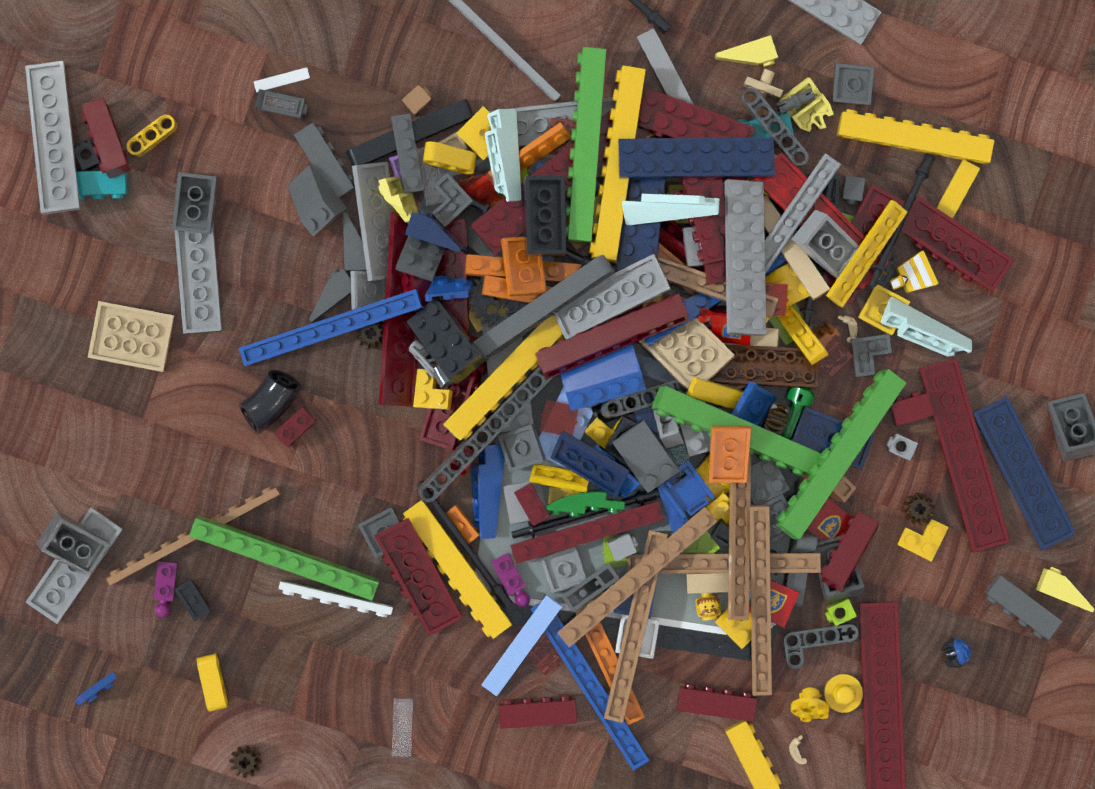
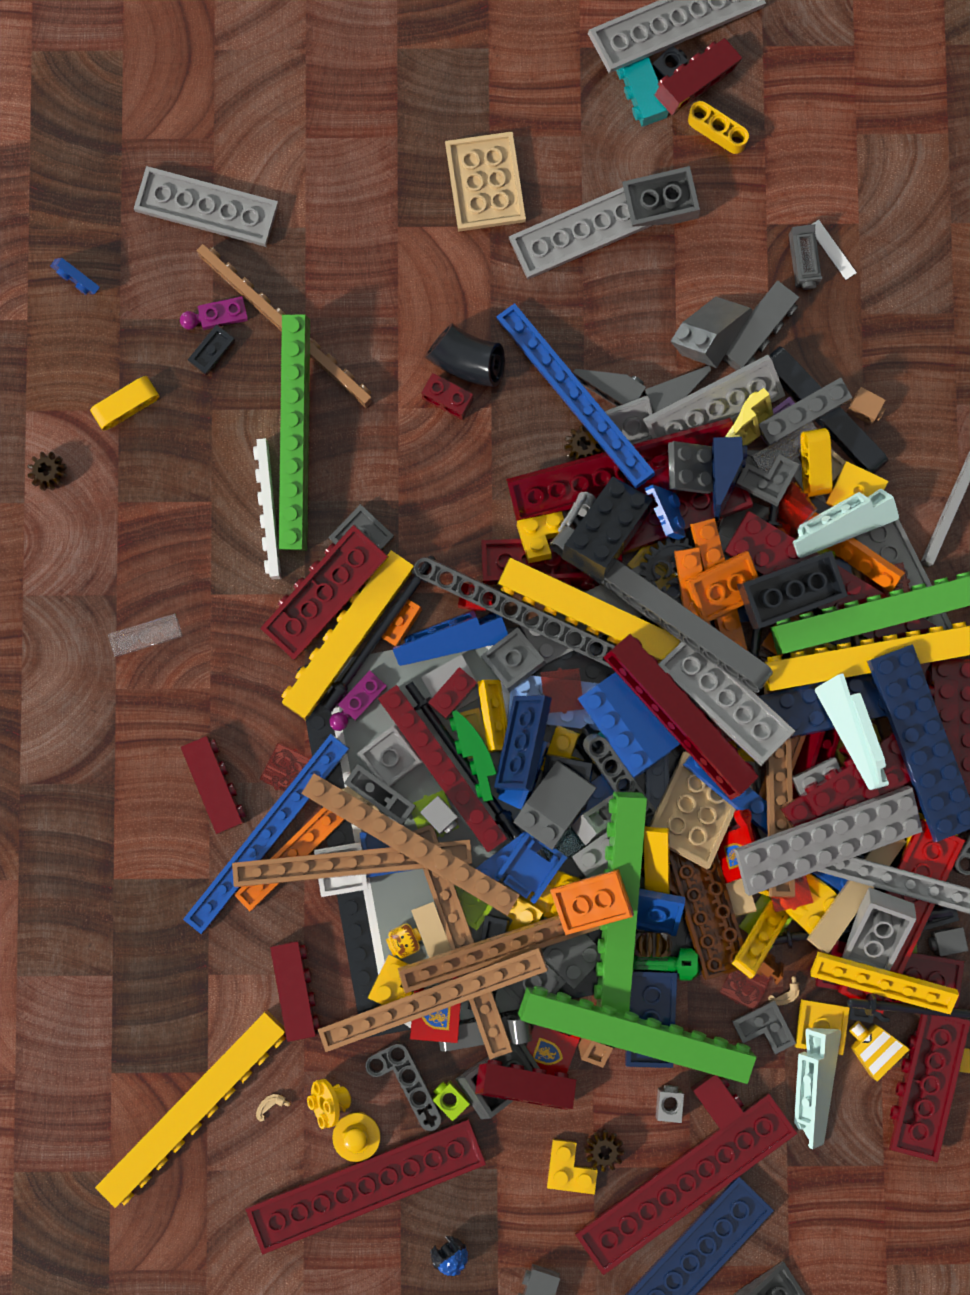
camera: 70 degrees right, 5 degrees down
(72, 544) = (229, 193): dark grey slope -> none
(522, 645) = (286, 739): light blue tile -> none

